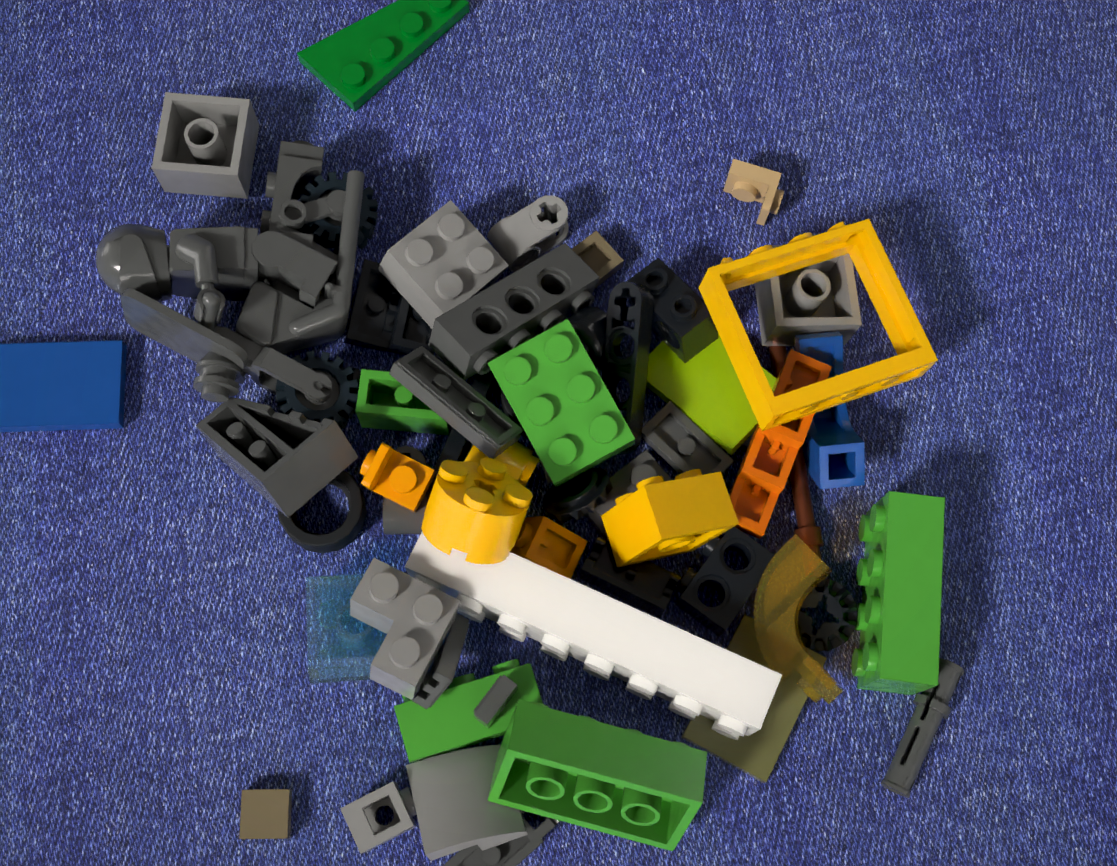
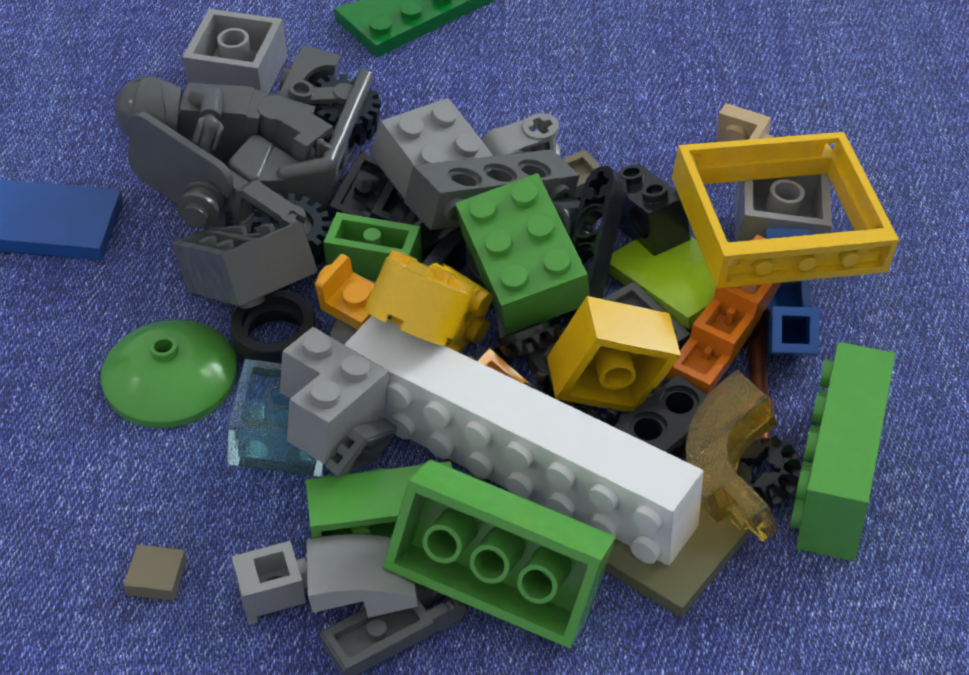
camera: 15 degrees right, 25 degrees down
(245, 587) = (169, 373): none -> bright green dish
(456, 402) = (420, 234): dark grey tile -> none
(495, 701) = (401, 469): dark grey tile -> none
(921, 730) = (870, 566): dark grey pin -> none

